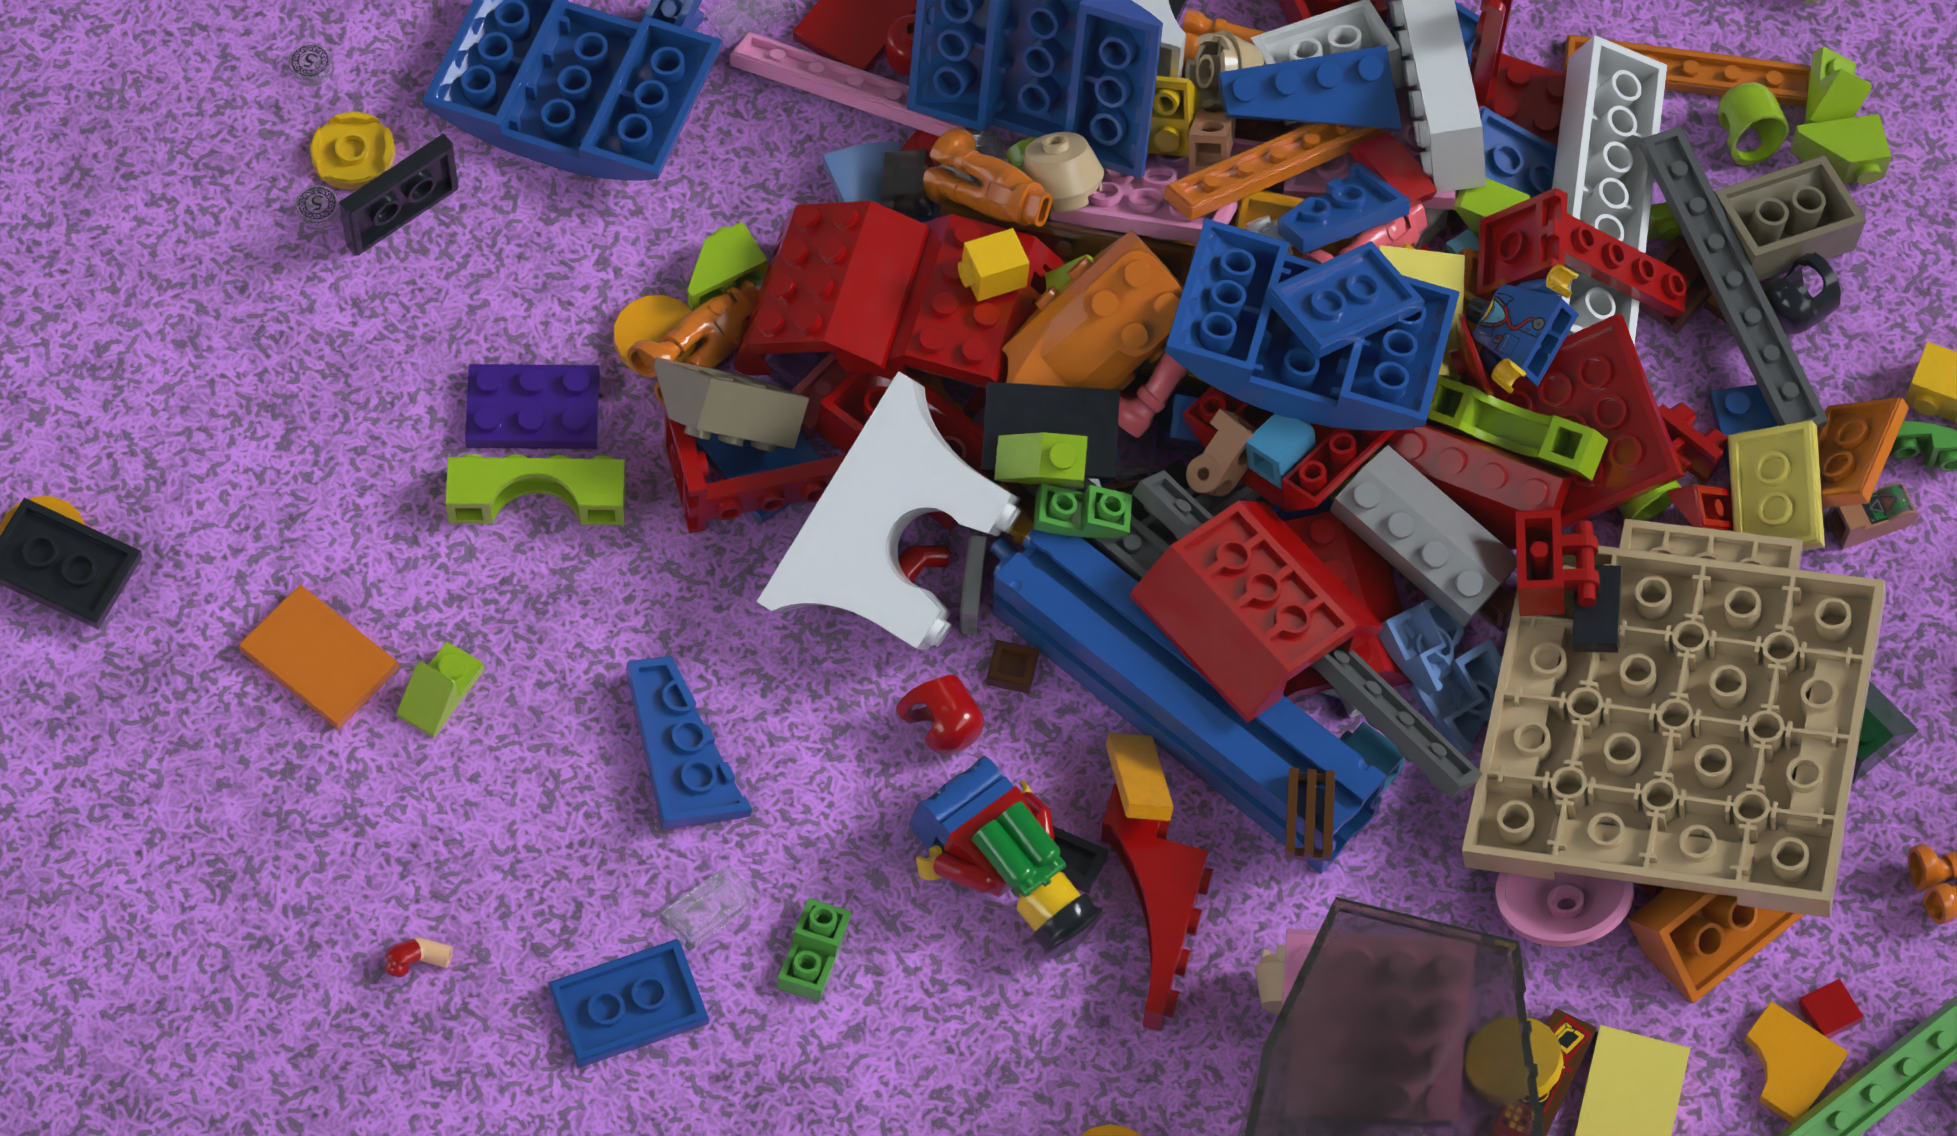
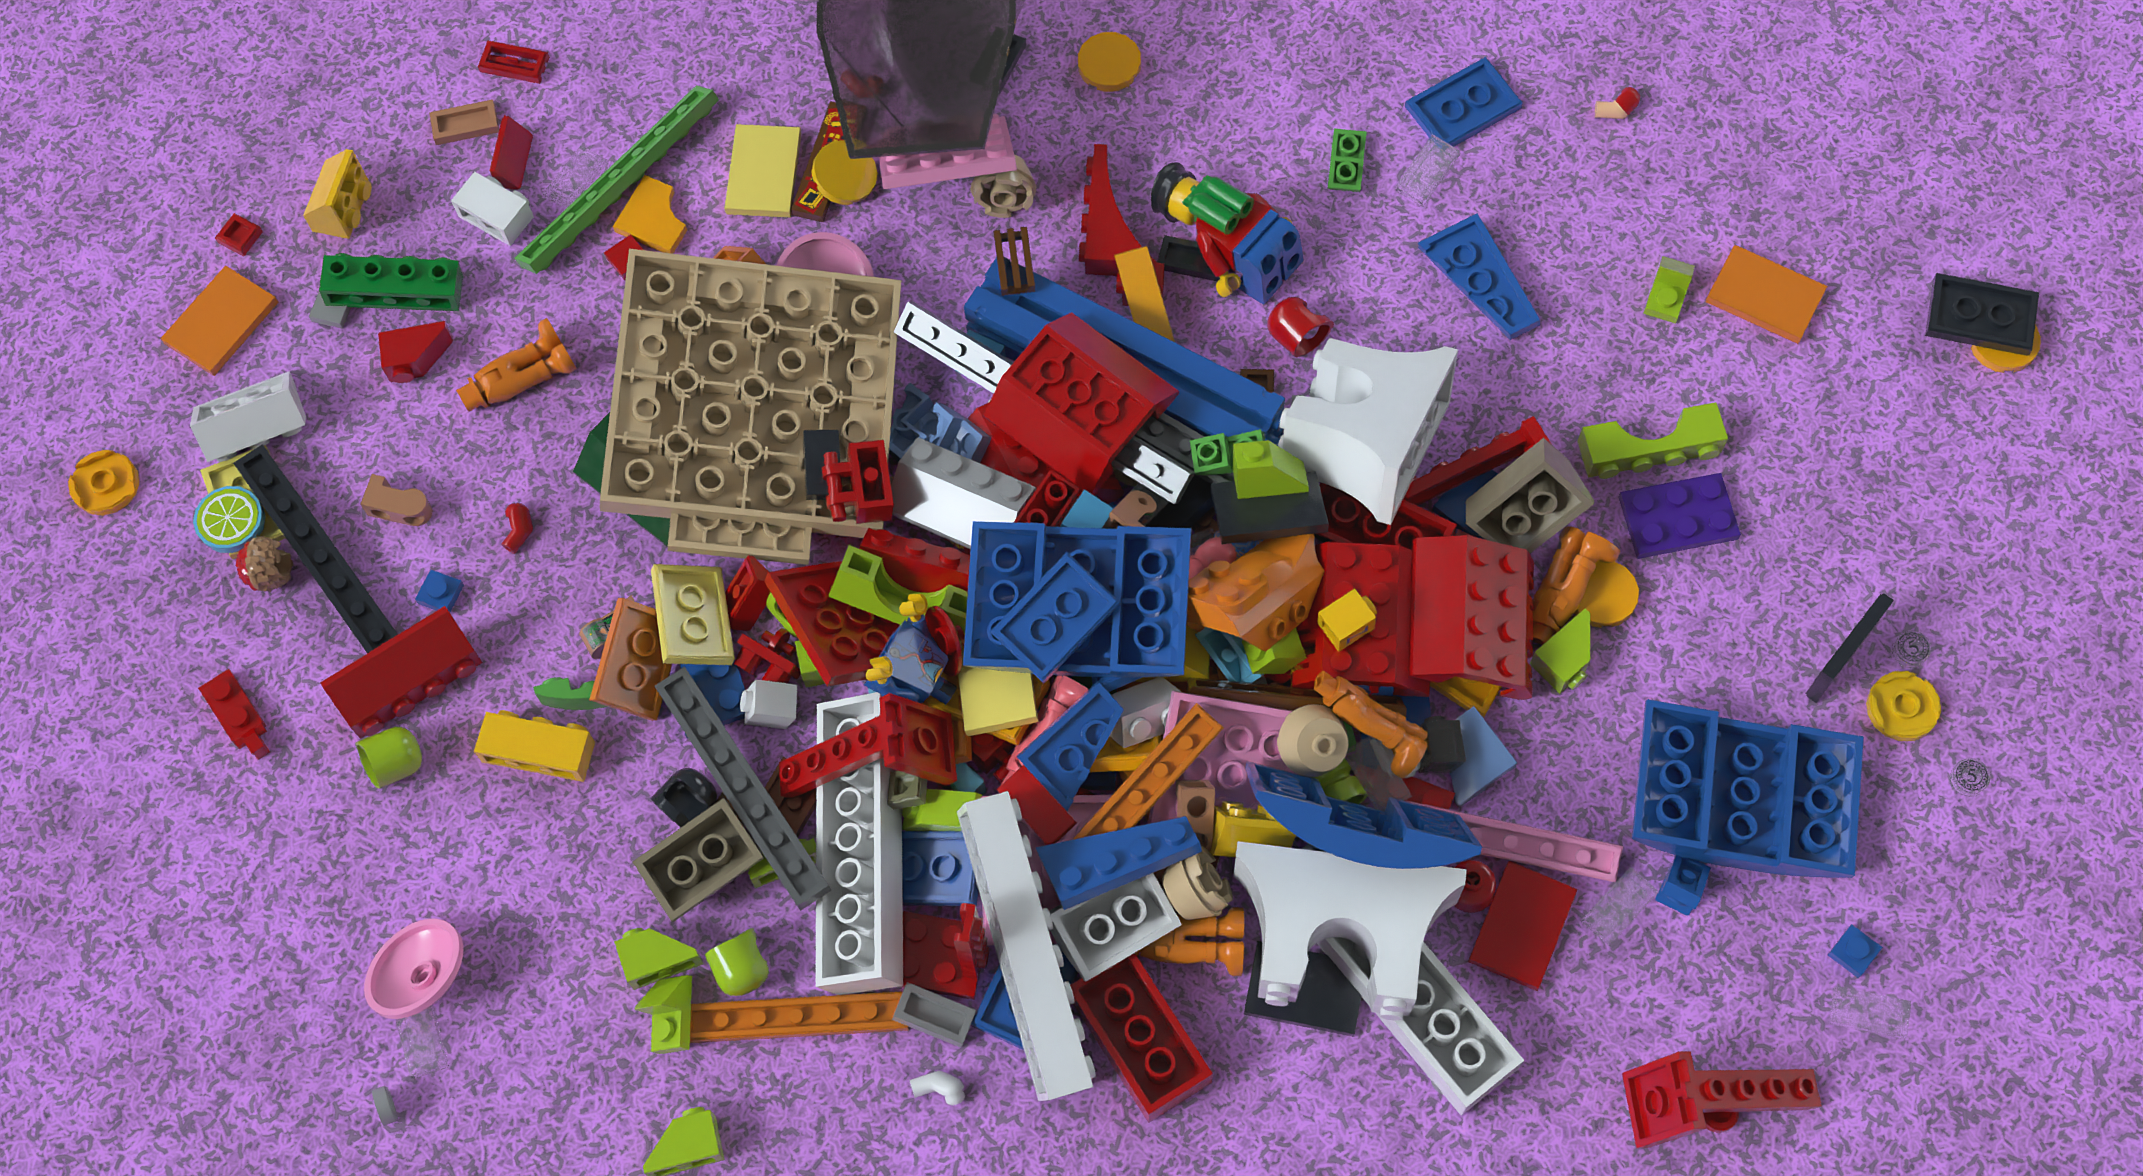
camera: 175 degrees right, 5 degrees up
(1541, 39) = (934, 1014): none -> light grey tile
(1690, 380) = (769, 704): none -> white brick

